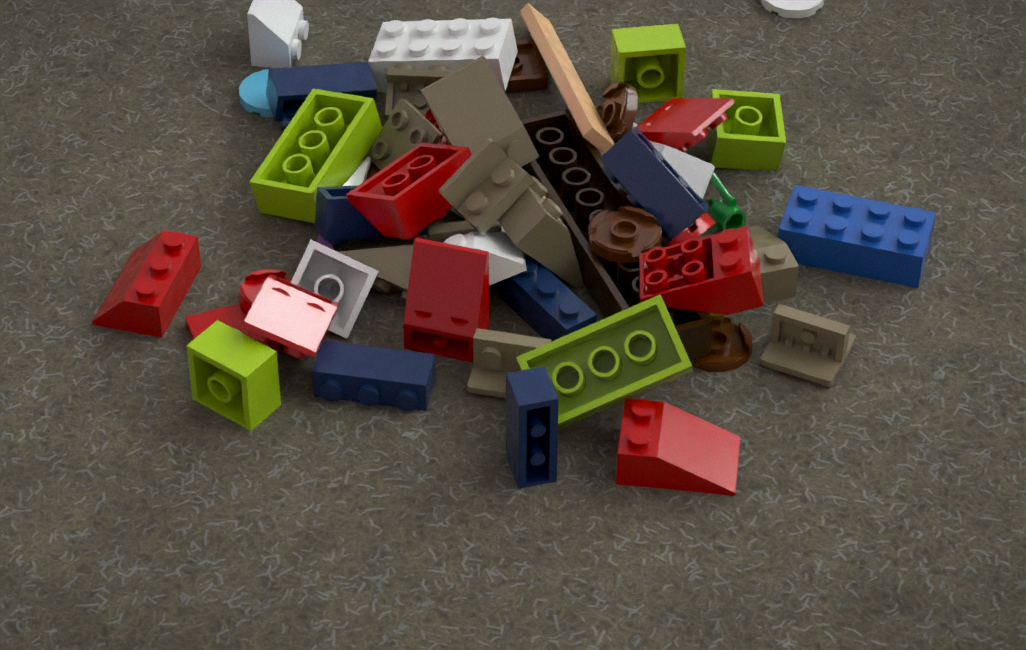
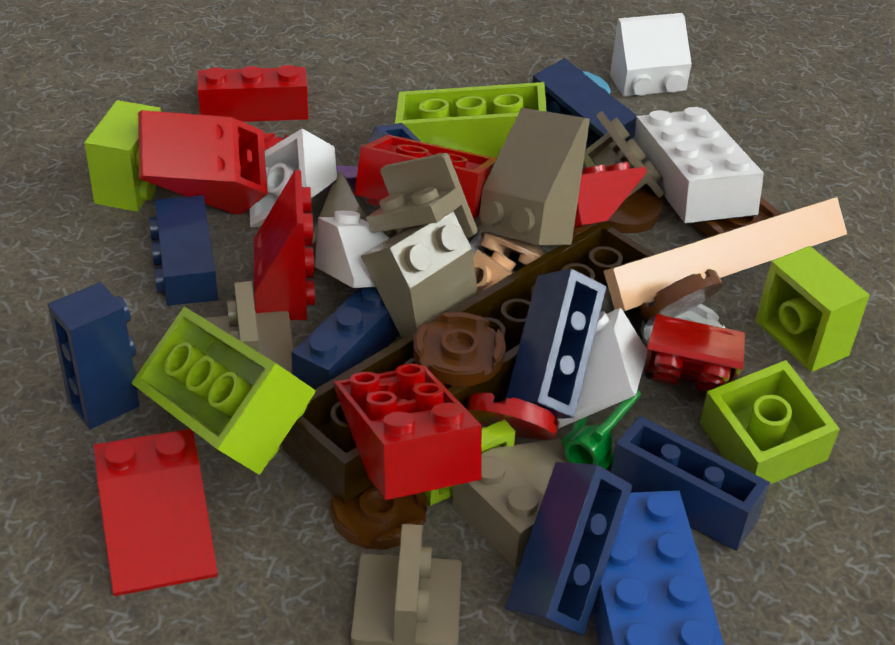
camera: 65 degrees right, 0 degrees up
(767, 185) = (715, 492): none -> dark blue brick
(824, 245) = (569, 547): none -> dark blue brick

